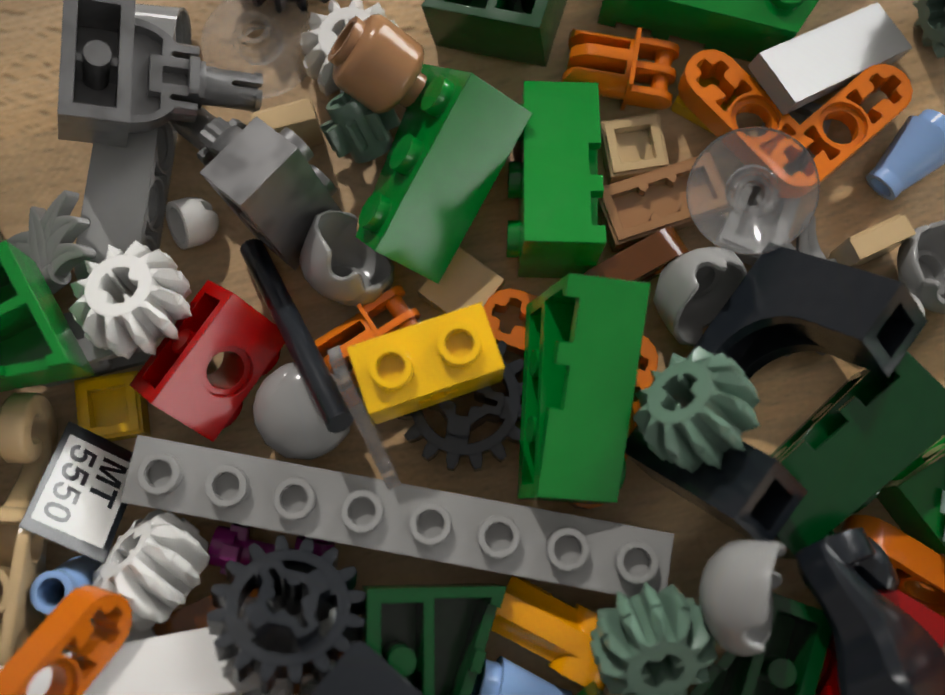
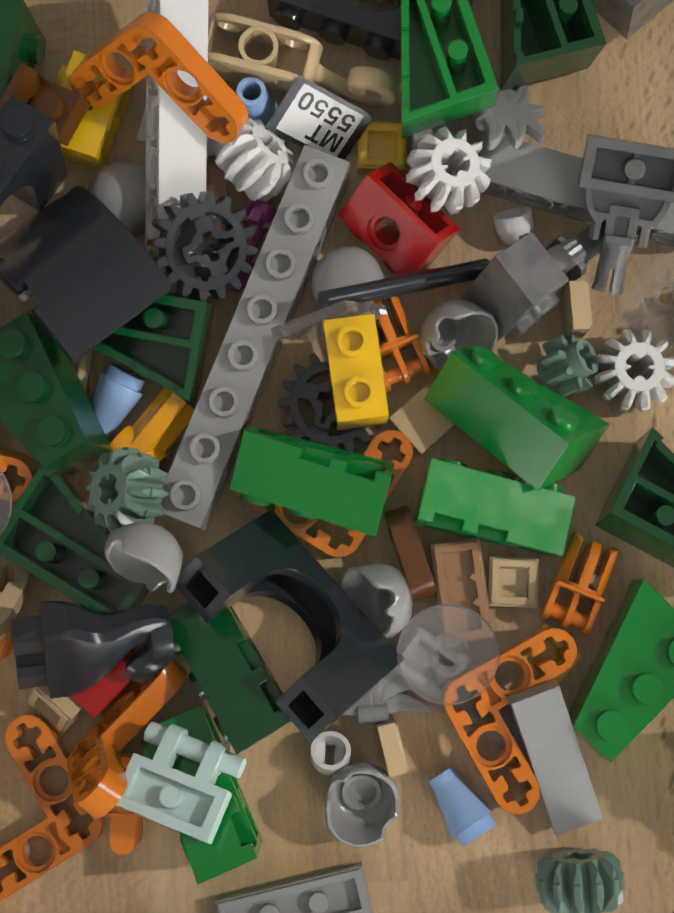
camera: 105 degrees right, 5 degrees up
(377, 64) = (601, 380): medium nougat head -> none
(697, 409) = (280, 555): sand green gear -> none

